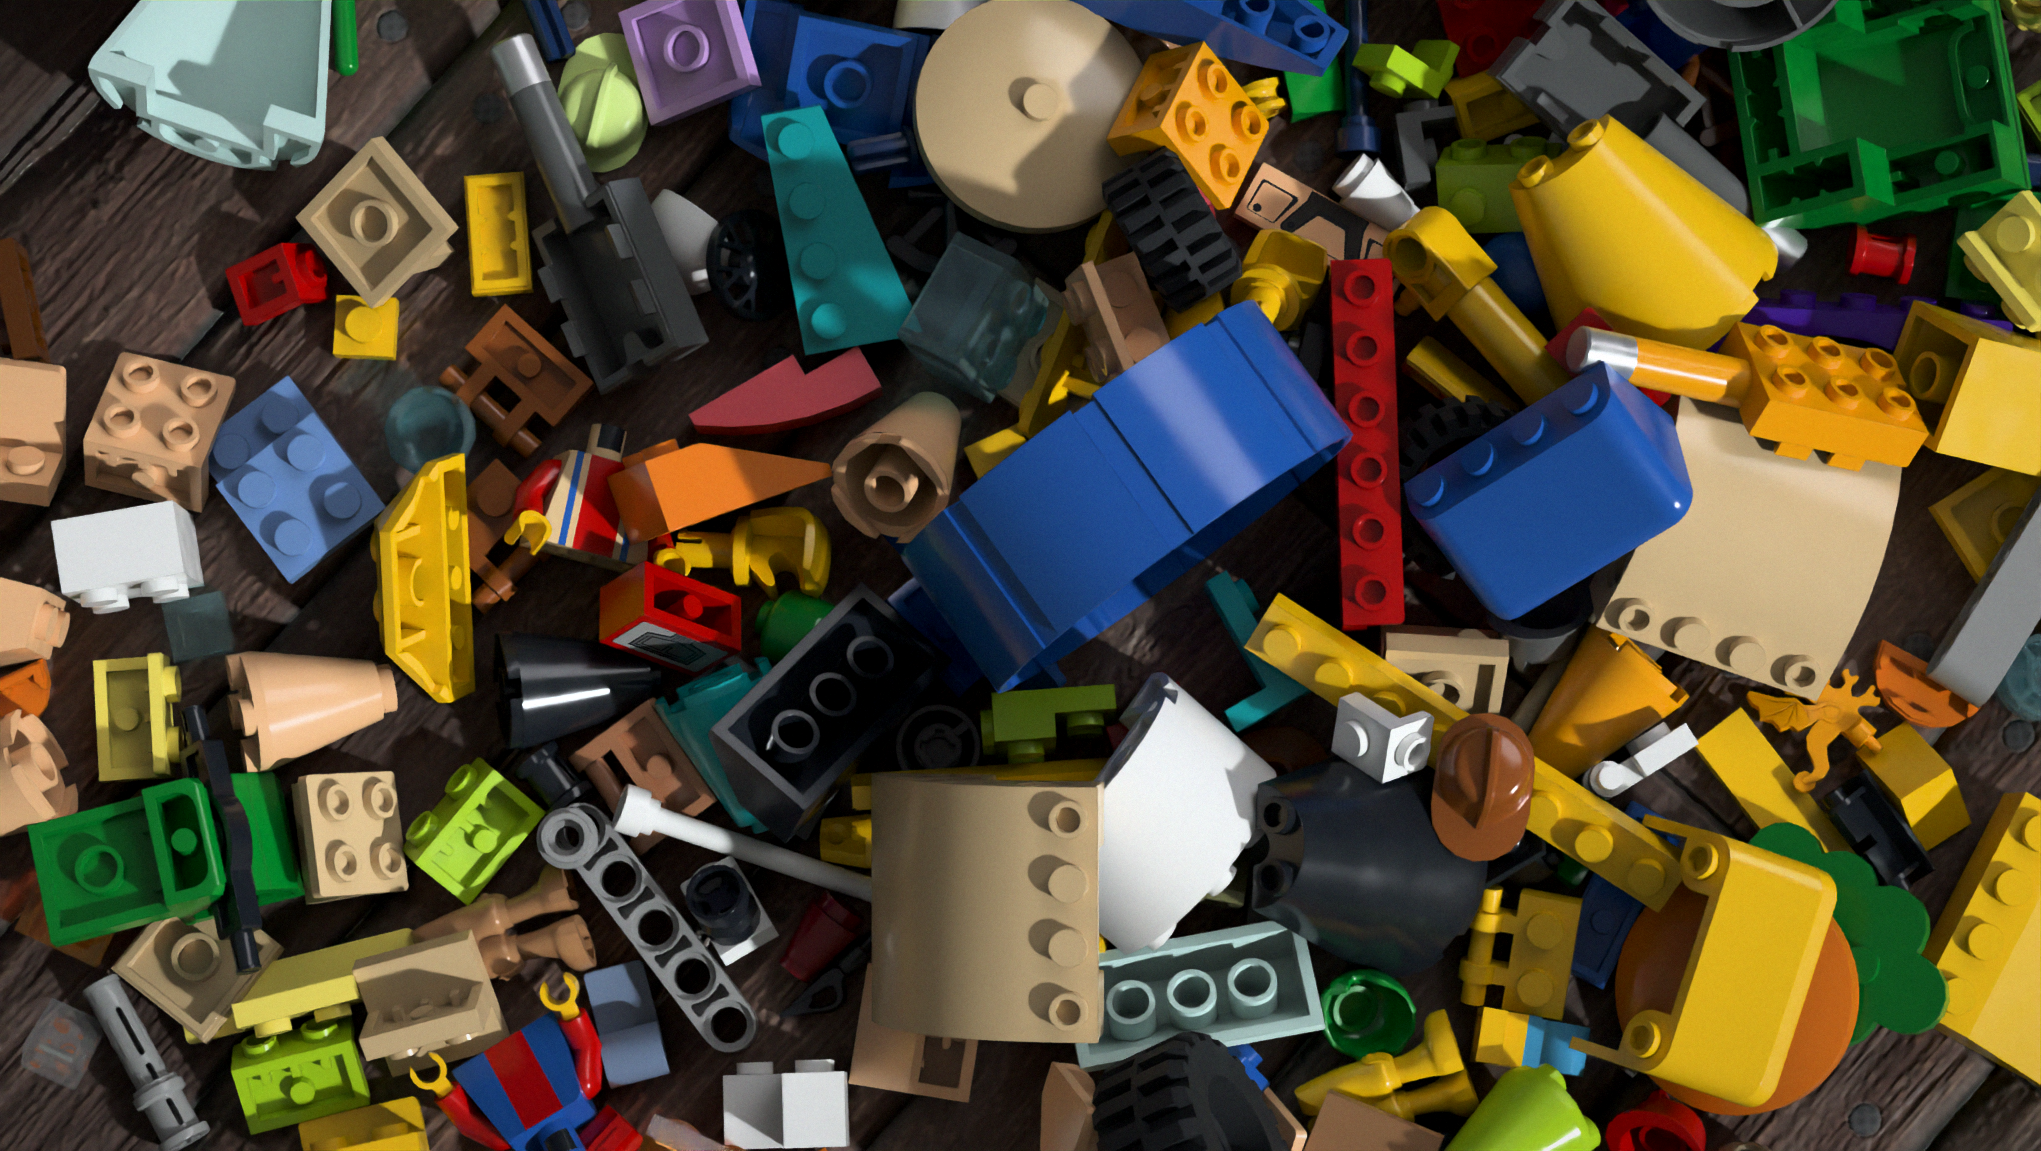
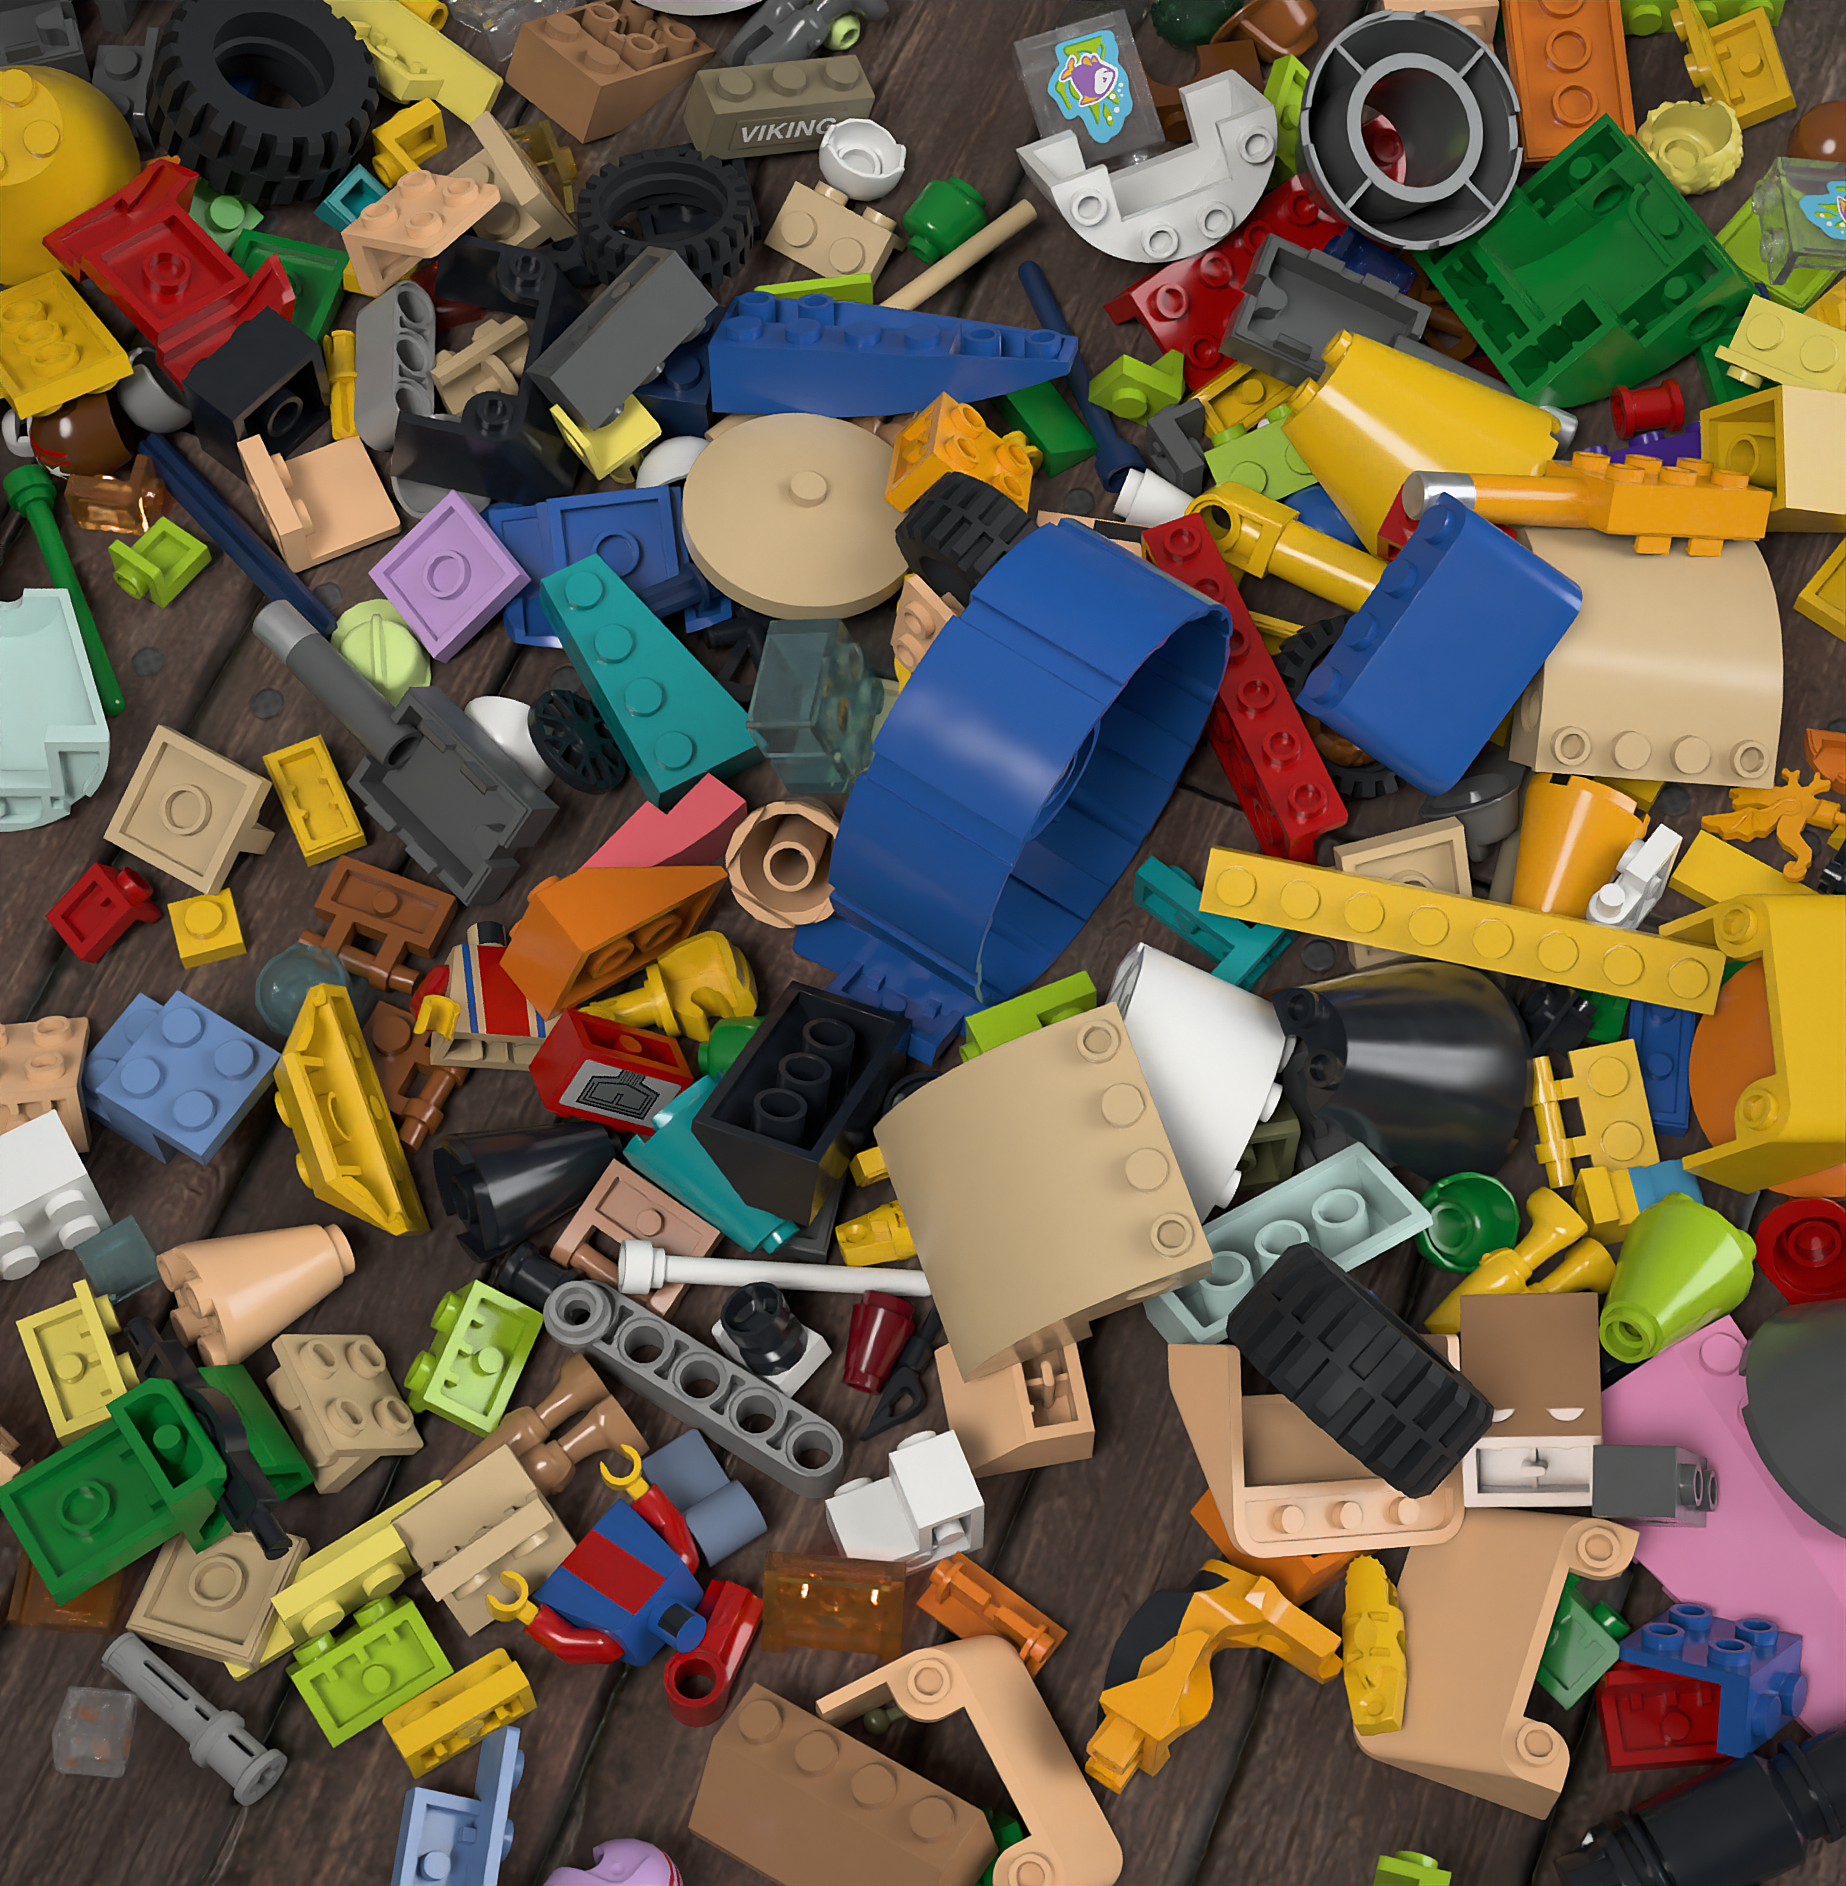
camera: 15 degrees left, 20 degrees down
(1379, 740) = (1371, 932): white bracket -> none
(1482, 787) = (1491, 943): dark orange piece -> none

